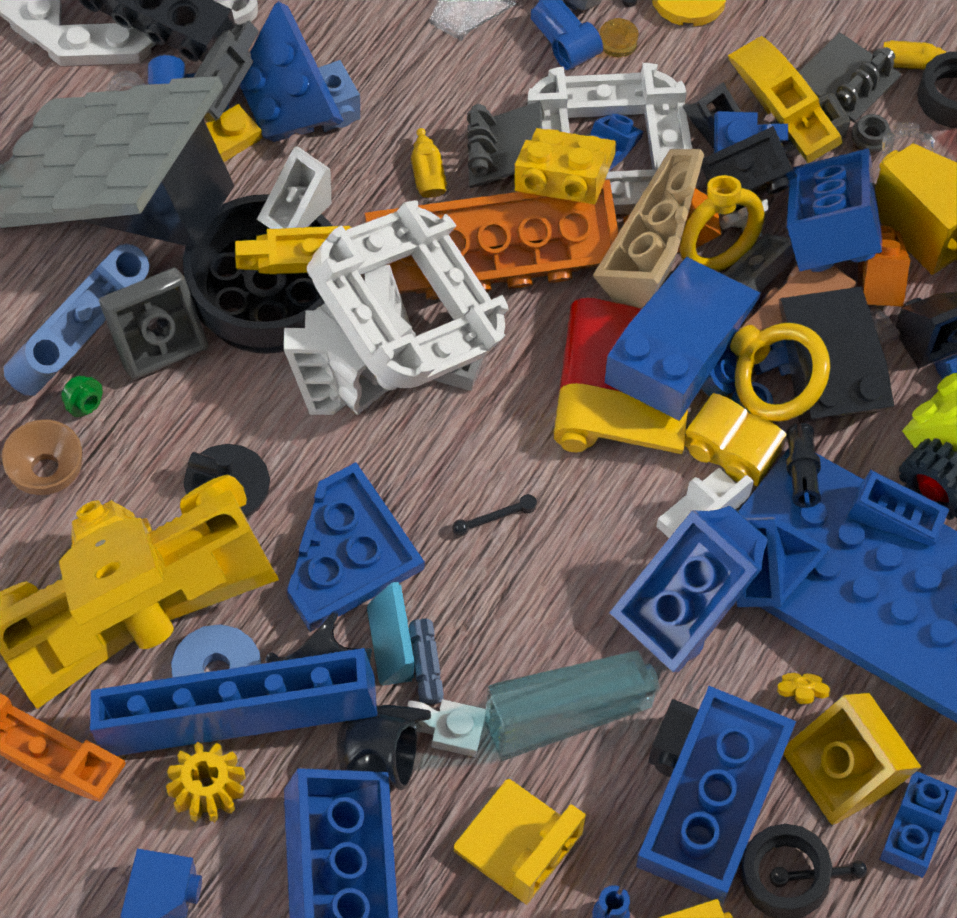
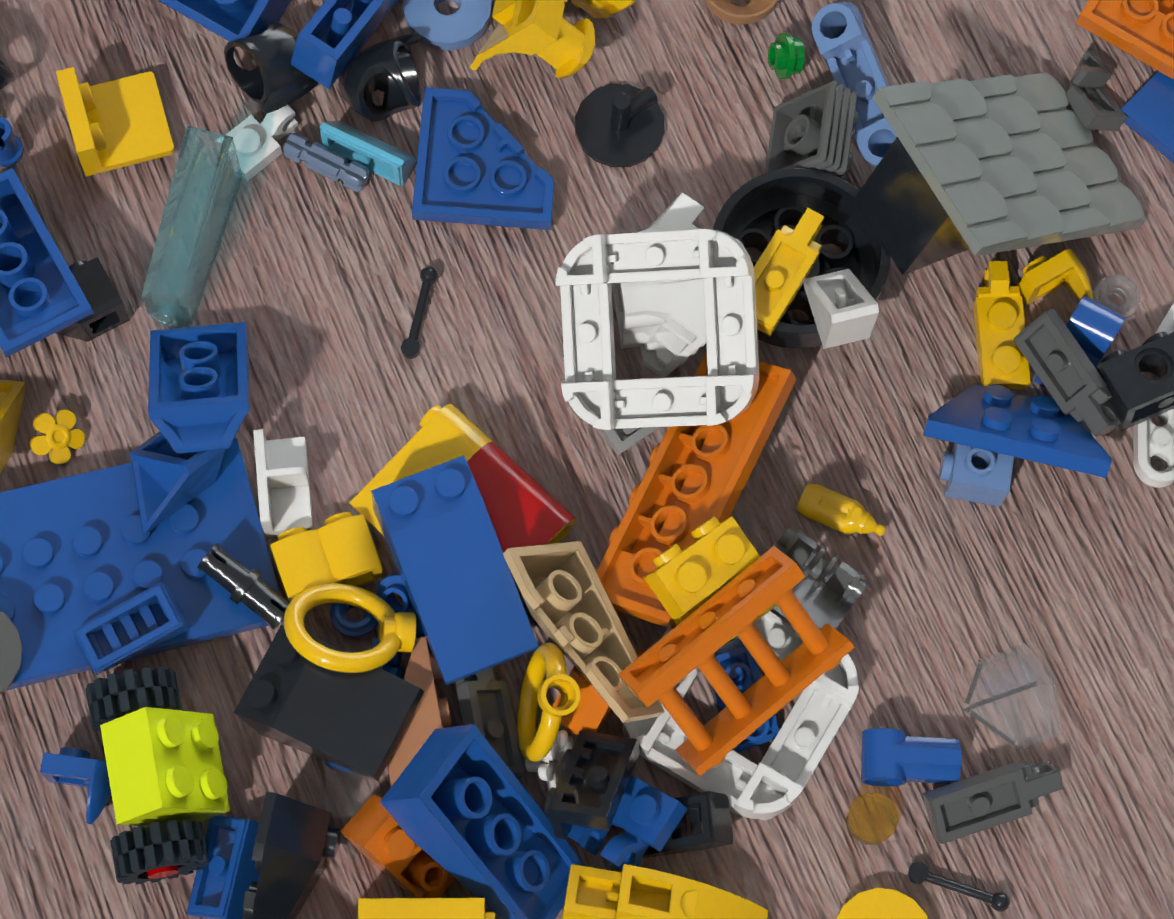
camera: 125 degrees right, 10 degrees up
(606, 117) = (708, 629): none -> orange fence

